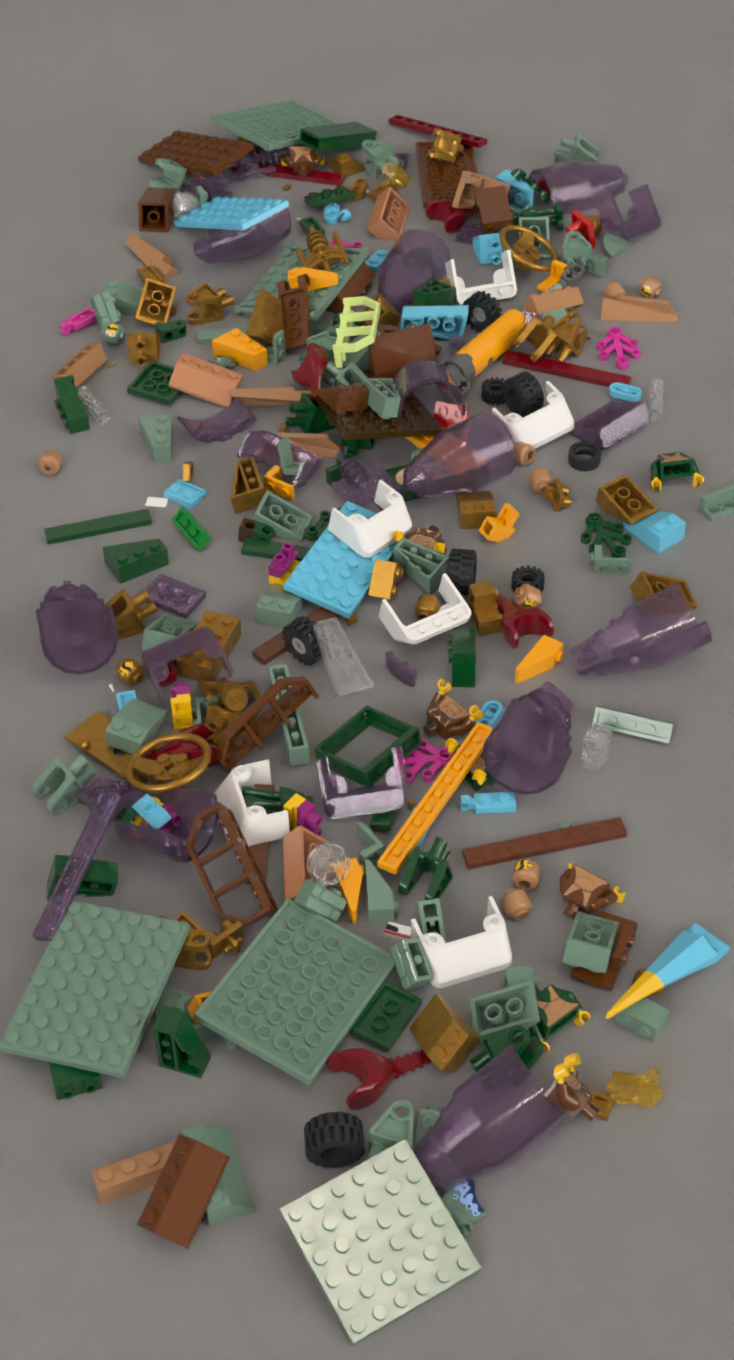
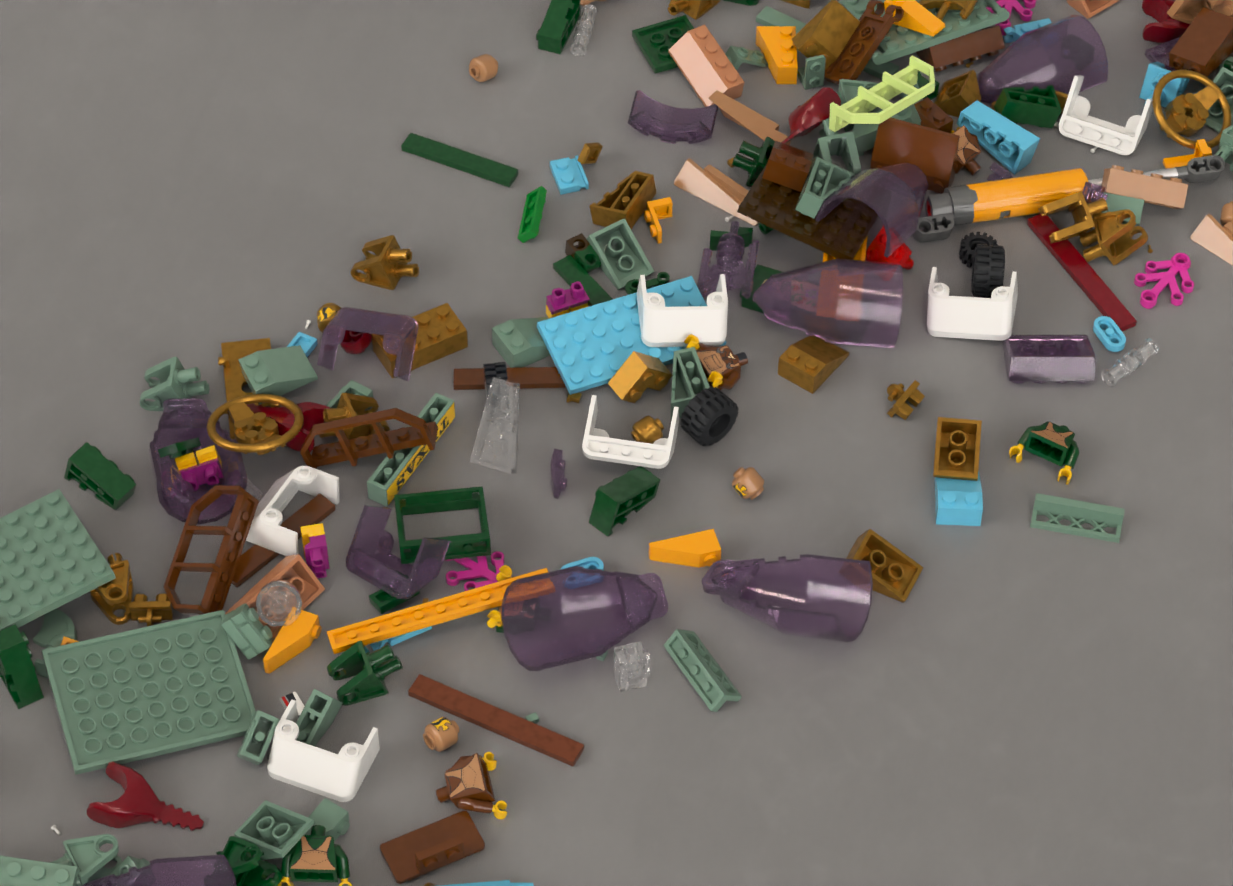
camera: 40 degrees right, 5 degrees up
(76, 629) = (315, 245): clear purple windscreen -> none
(76, 866) = (90, 462): clear purple plate -> none
(135, 558) = (451, 213): dark green wedge -> none
(151, 812) = (195, 458): medium azure plate -> none
(156, 502) = (537, 167): white sticker -> none
(158, 436) = (605, 100): sand green wedge -> none
(165, 629) = (400, 299): sand green slope -> none
(174, 595) = (446, 270): clear purple plate -> none
(181, 705) = (332, 378): yellow hips -> none
(233, 694) = (380, 393): pearl gold bar -> none
(263, 448) = (688, 186): clear purple windscreen -> none
(269, 799) = (334, 528): dark green piece -> none
(287, 464) = (682, 198): sand green bracket -> none
(334, 1139) = (40, 829): black tyre -> none
(374, 848) = (338, 620): sand green bracket -> none
(379, 896) = (302, 665): sand green slope -> none
(386, 1016) = (199, 766): dark green plate -> none
(444, 1035) = (215, 816): pearl gold slope -> none
(447, 716) = (544, 543): torso -> none
(482, 310) = (1056, 150): black wheel -> none
(484, 608) = (693, 467): pearl gold brick -> none
(489, 802) = (490, 650): medium azure plate -> none
(501, 527) = (808, 396): light orange brick -> none
(516, 904) = (404, 753): medium nougat head -> none
(522, 621) = (713, 498): dark red animal -> none
(524, 453) = (922, 333): medium nougat head -> none
(528, 574) = (772, 458): black tyre -> none
(540, 479) = (904, 372): medium nougat head -> none
(583, 464) = (982, 363): black tyre -> none
(590, 942) = (418, 827): sand green slope -> none
(595, 521) = (908, 451): dark green plant -> none
(609, 564) = (860, 499): sand green bracket -> none

